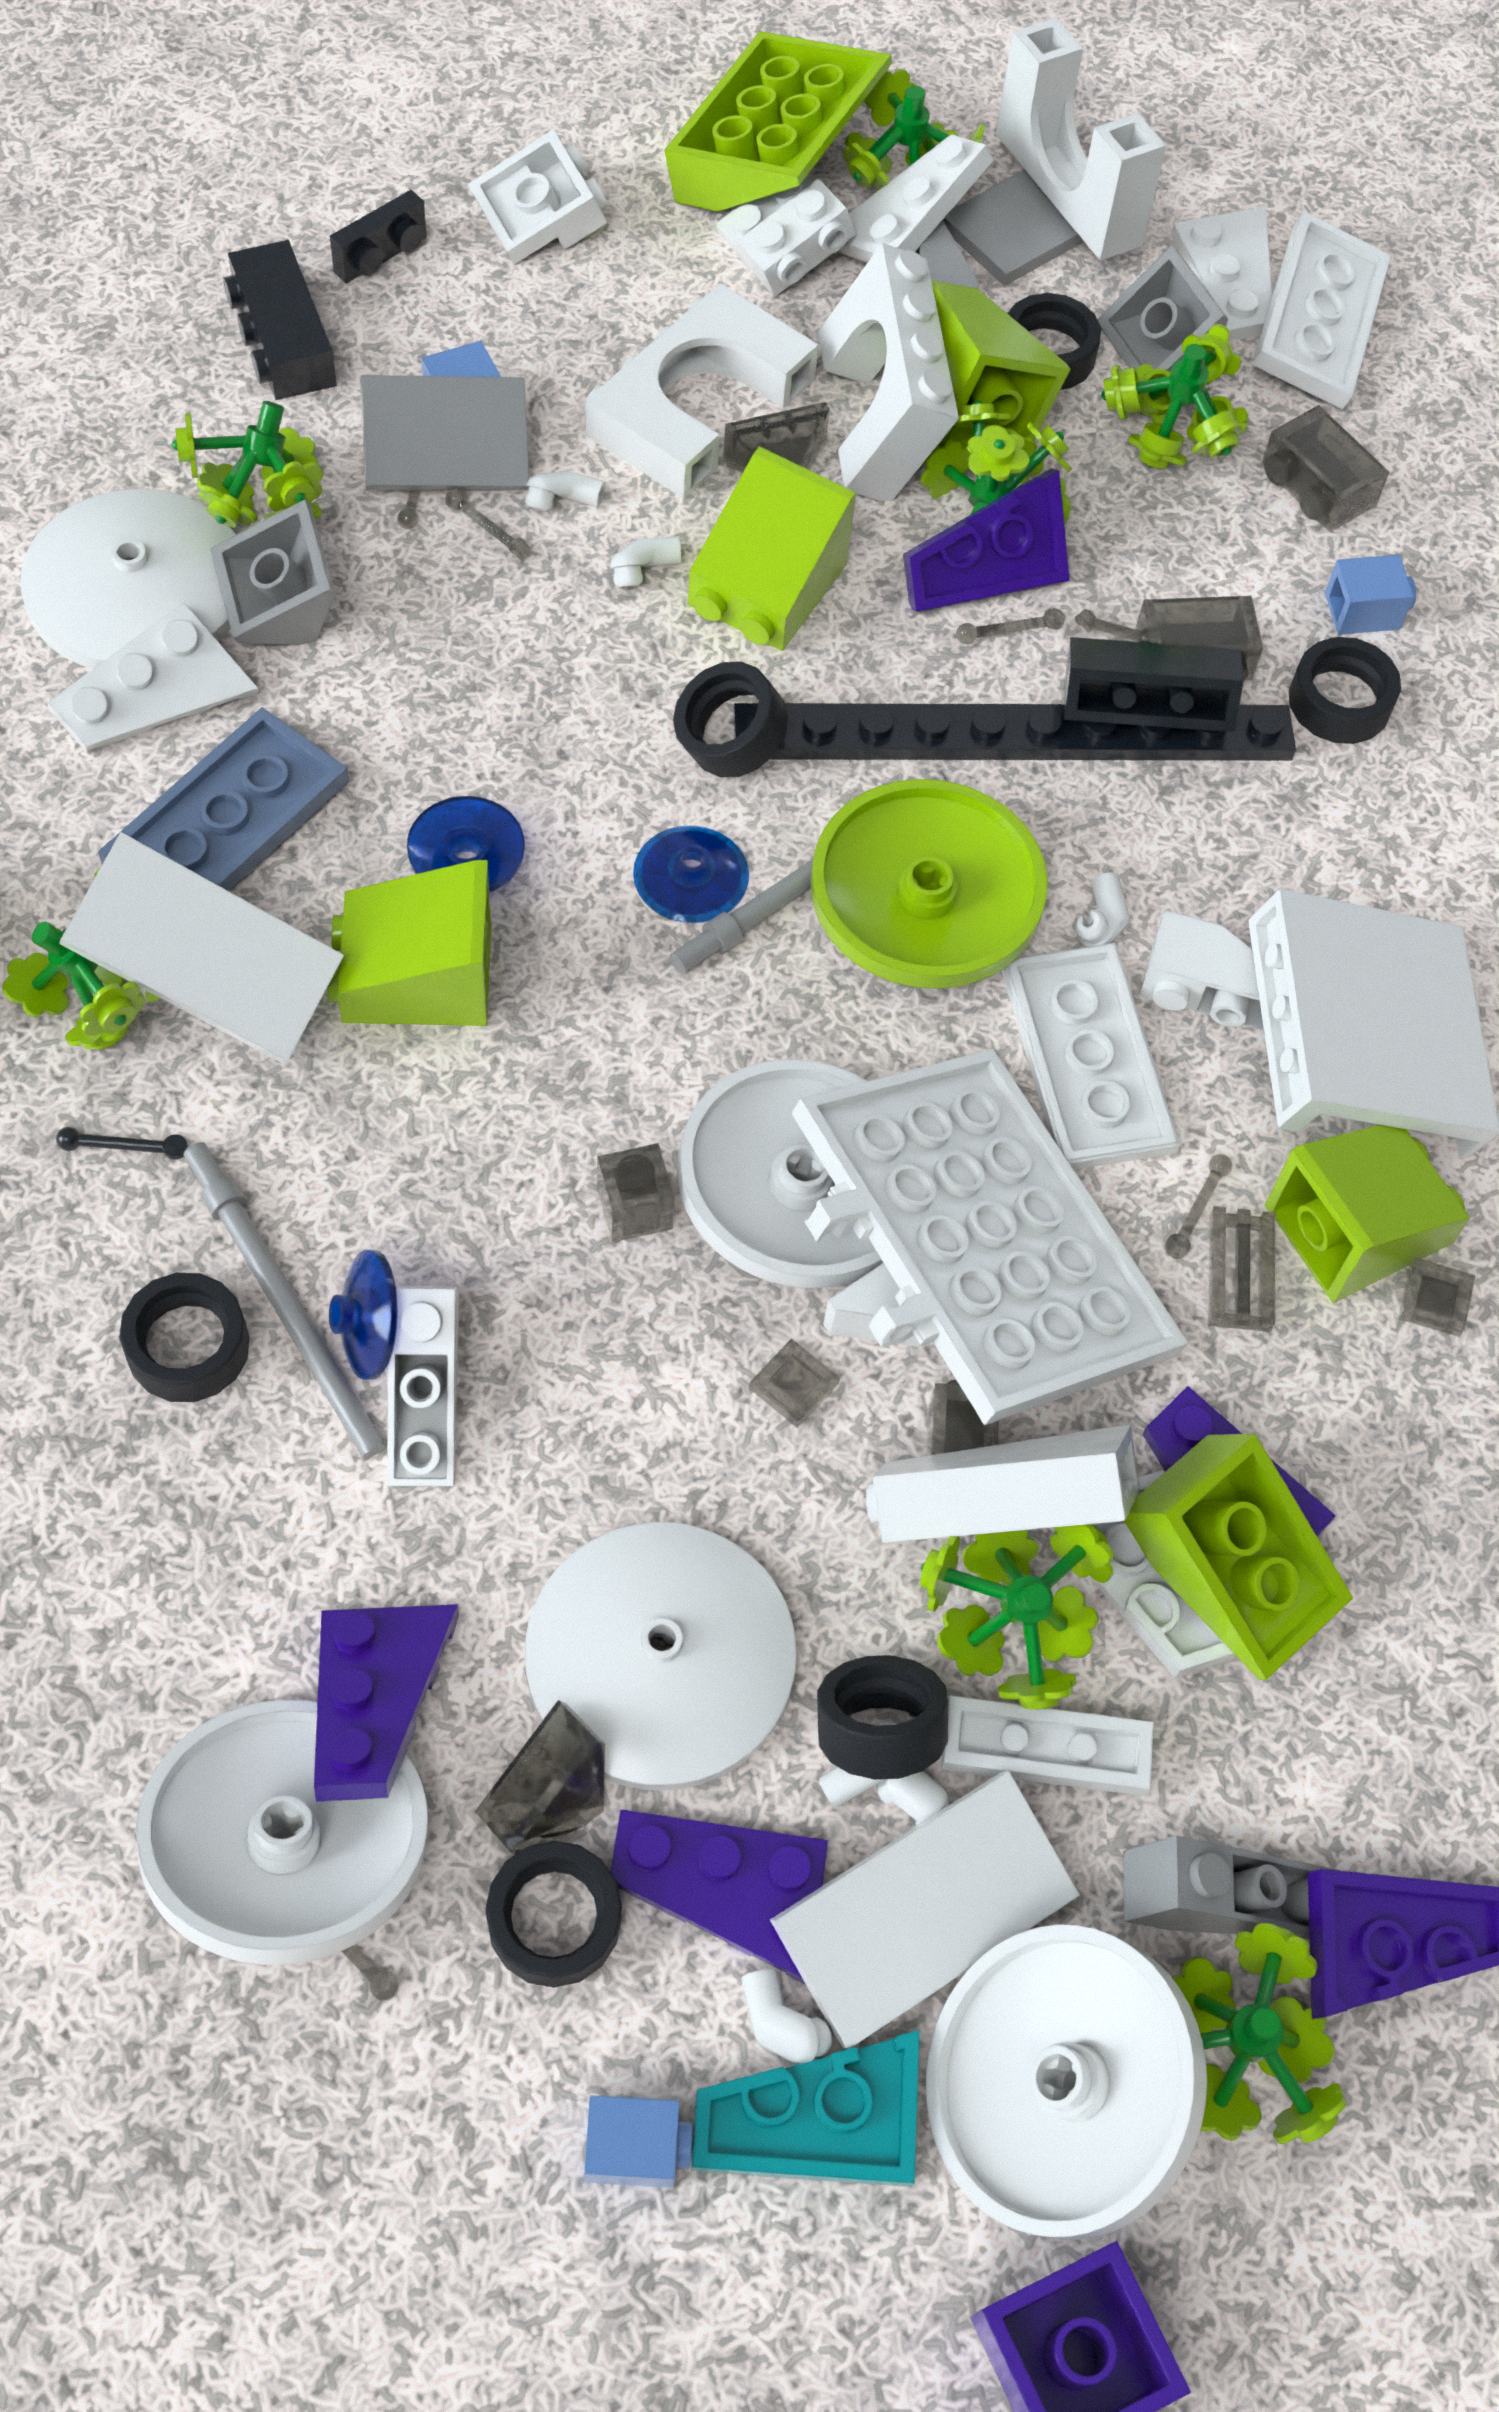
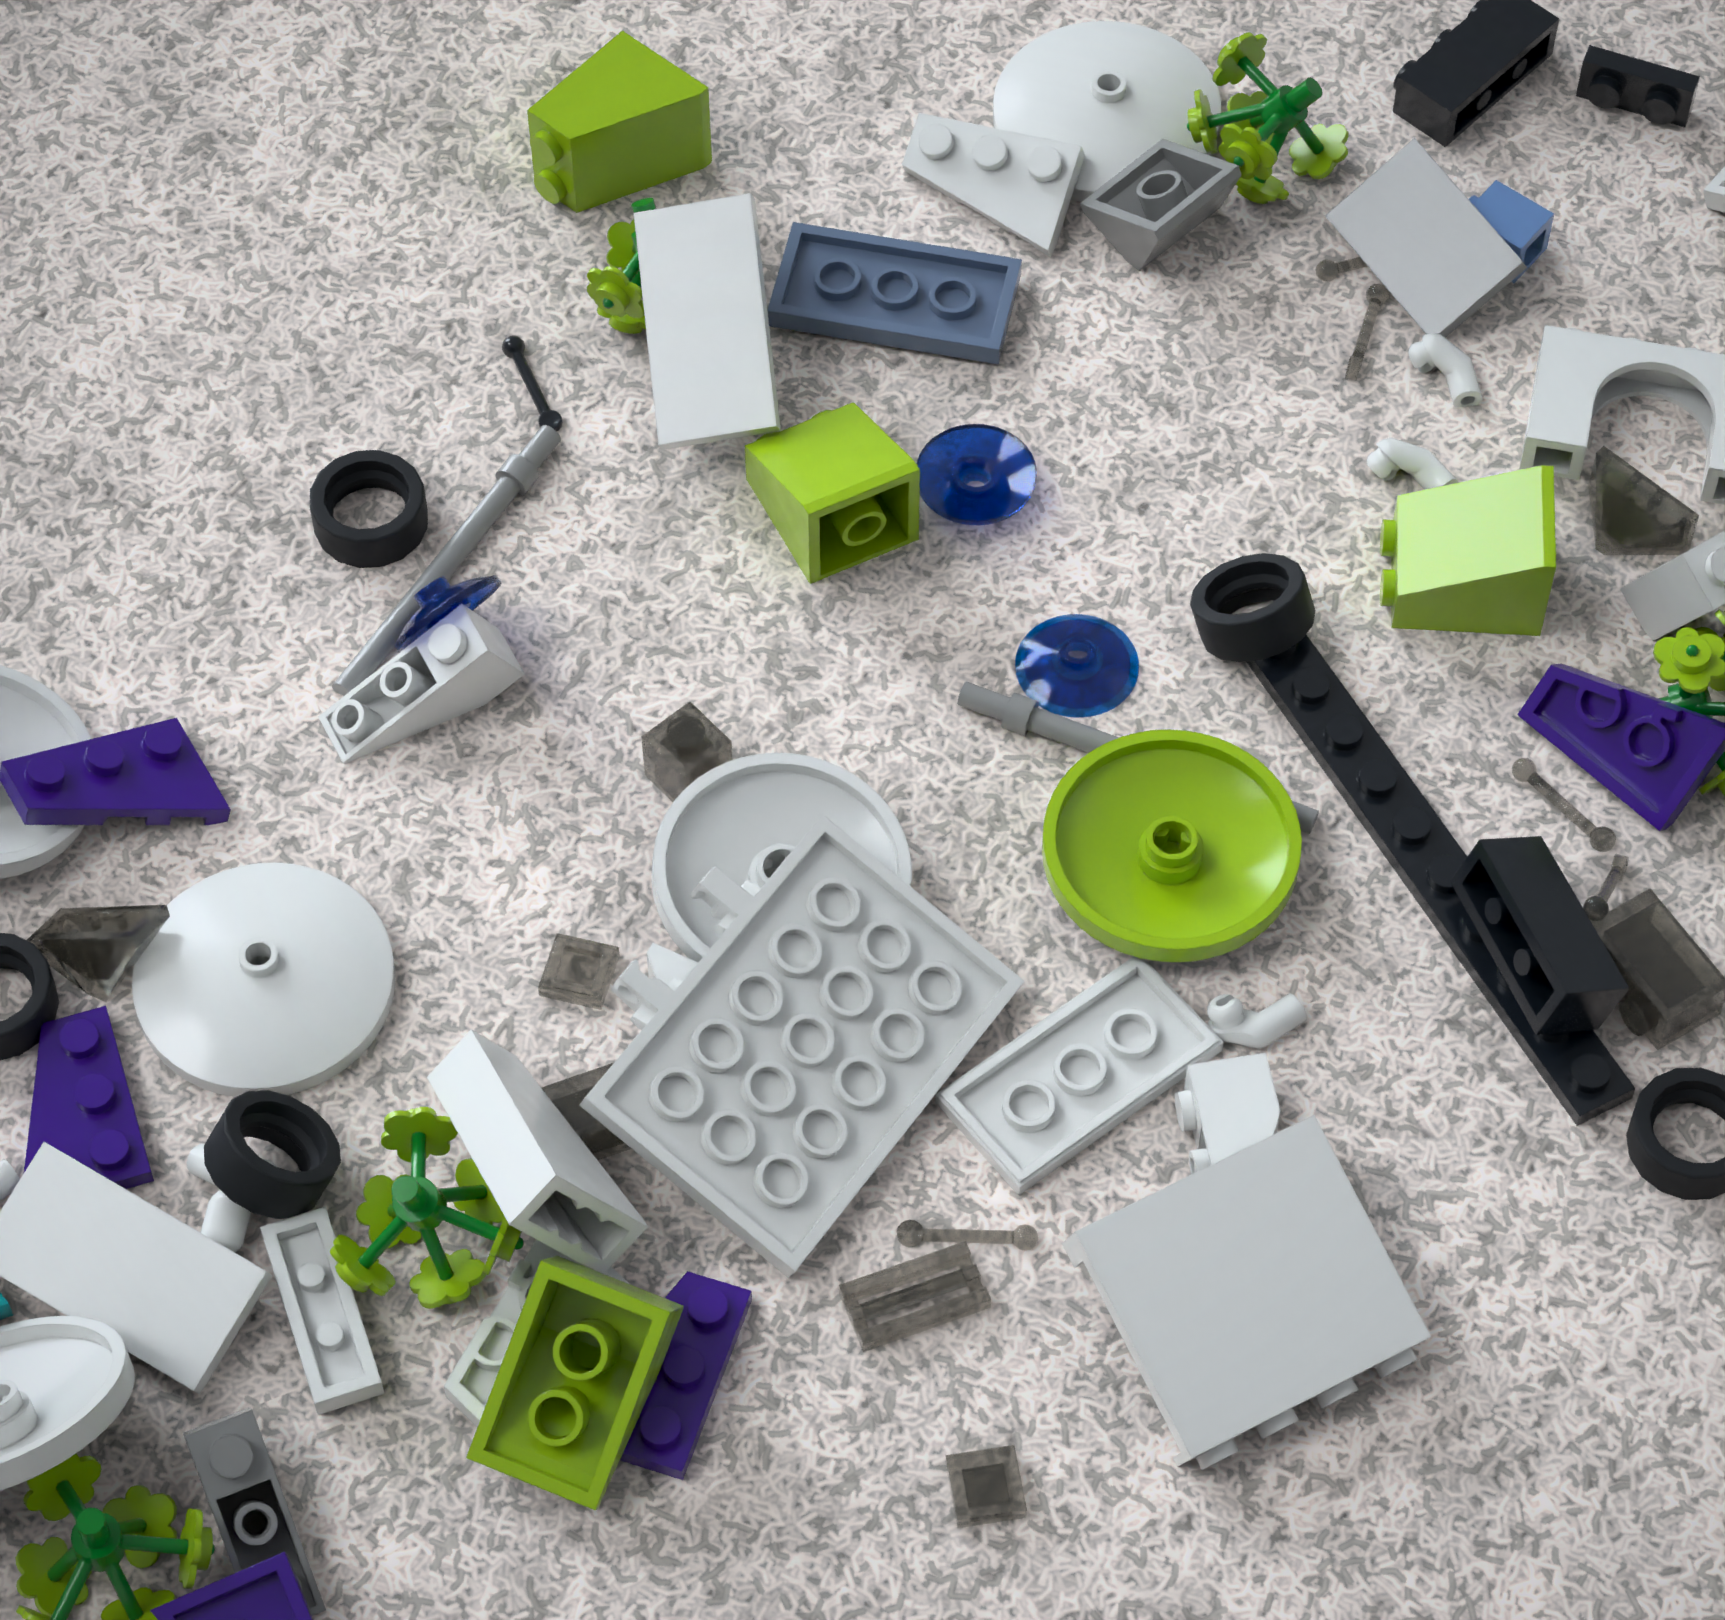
camera: 70 degrees right, 5 degrees down
(1364, 1207) = (1034, 1366): lime slope -> none

